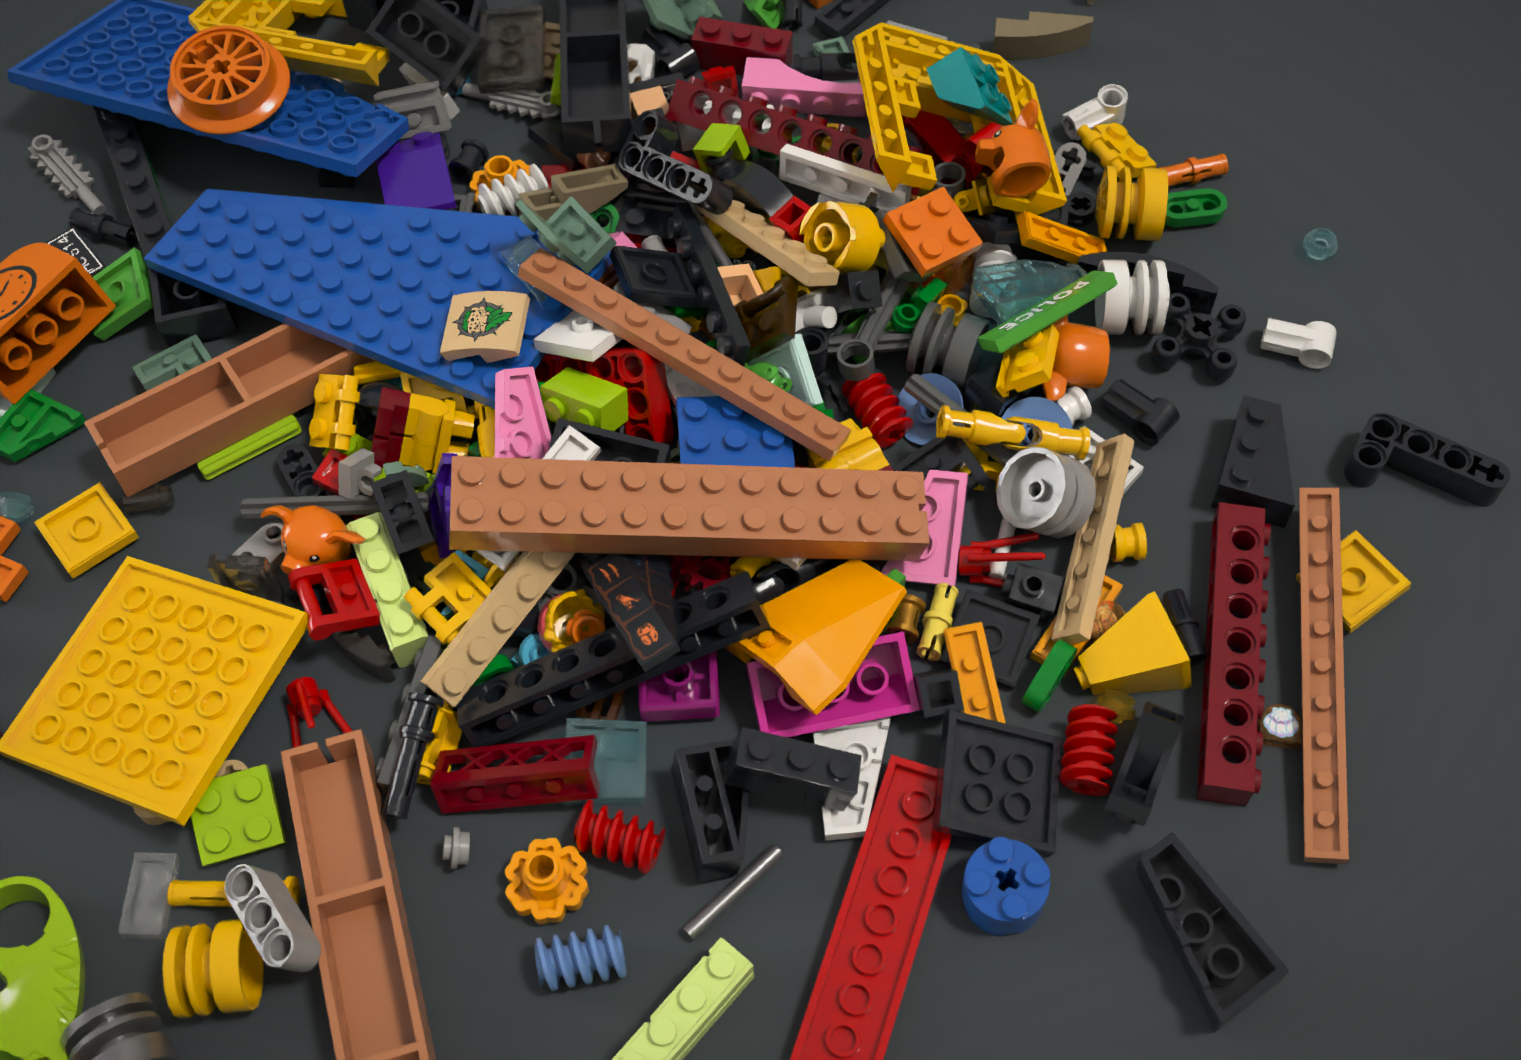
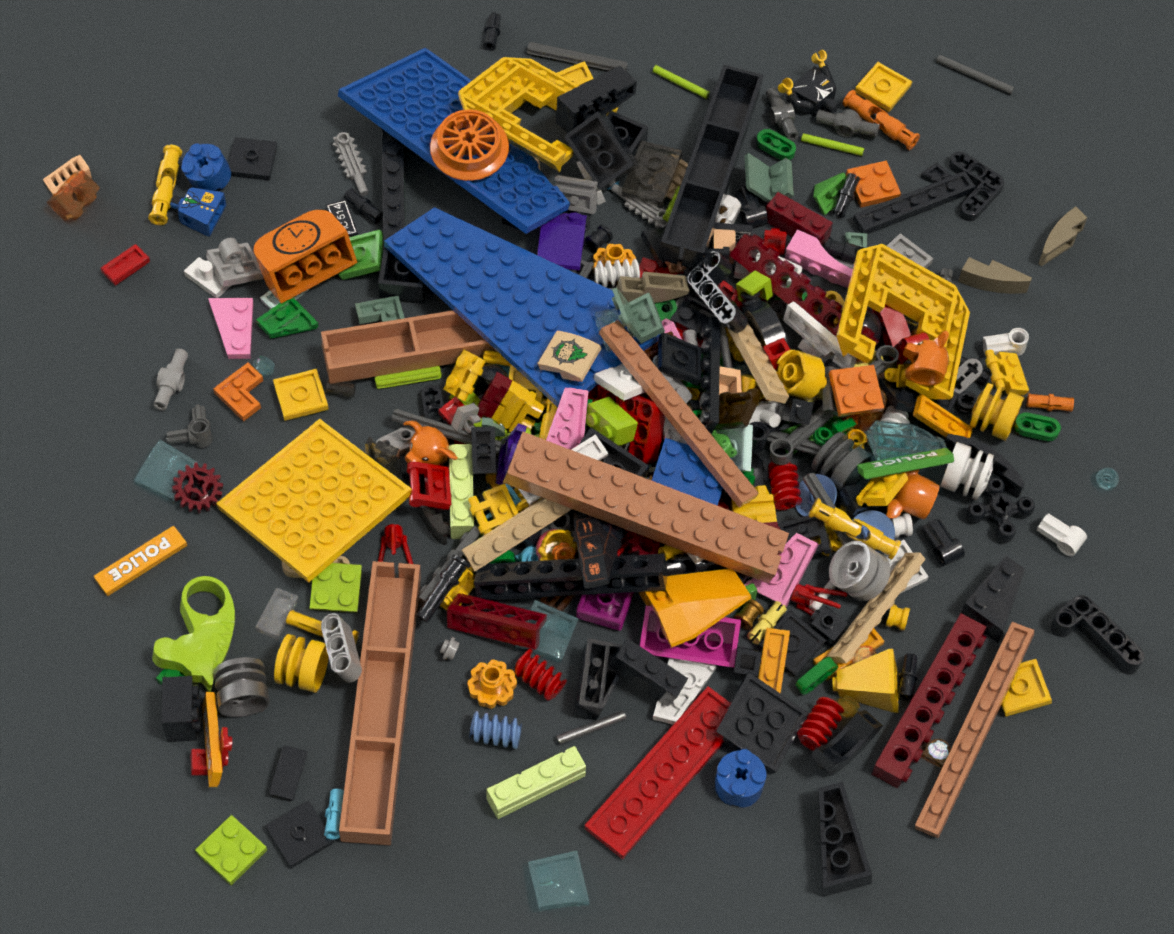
camera: 15 degrees right, 0 degrees up
(970, 86) = (922, 304): teal slope -> none

